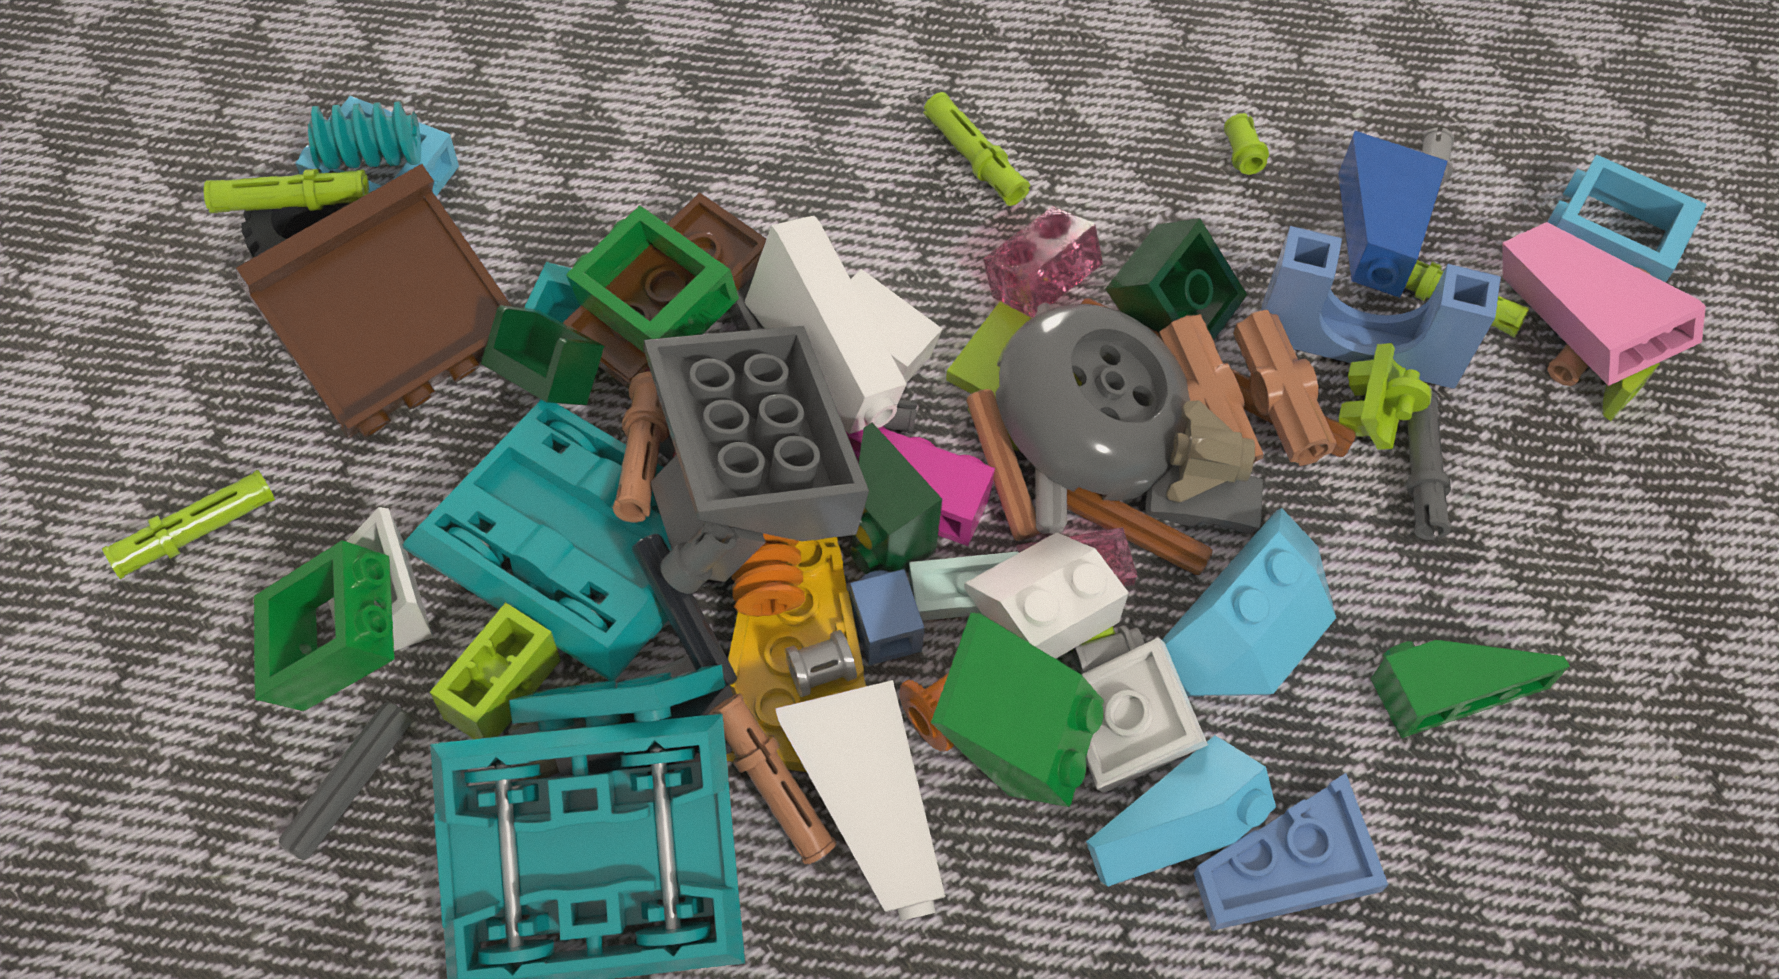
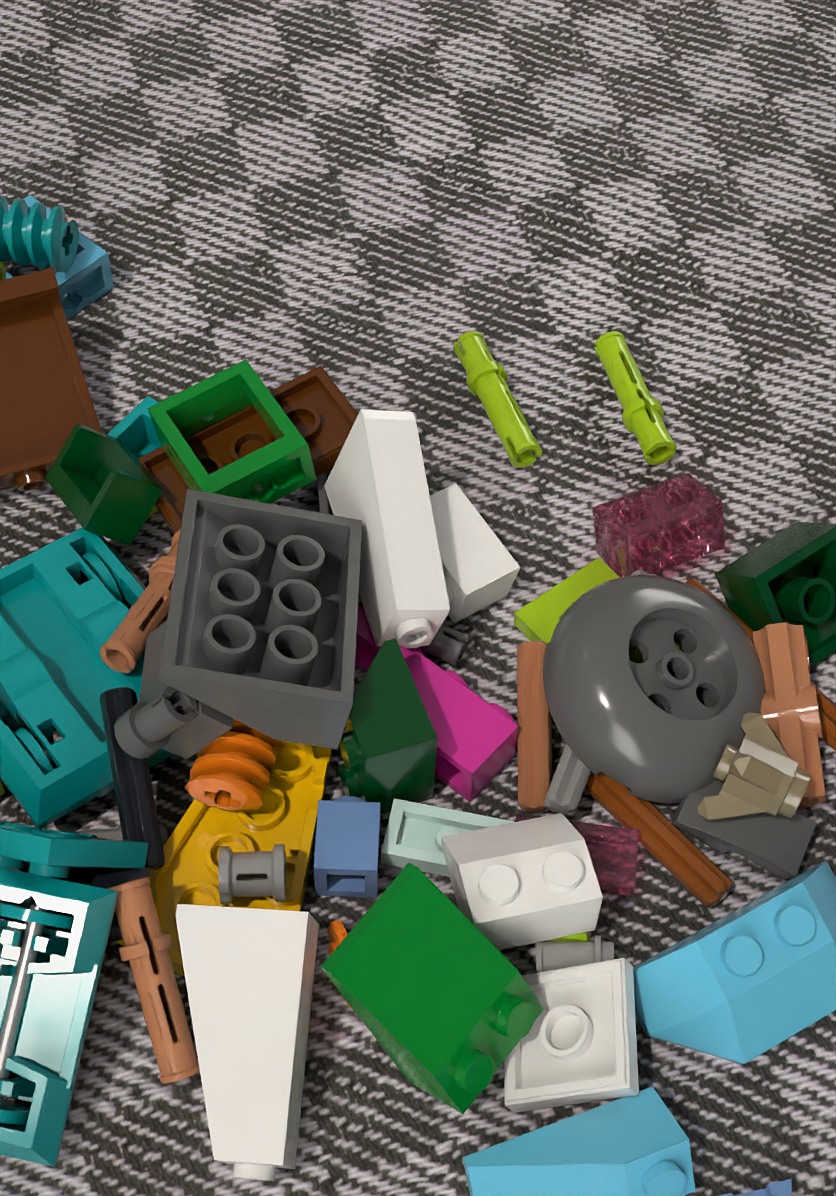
camera: 20 degrees right, 5 degrees down
(843, 167) = (489, 383): none -> lime pin

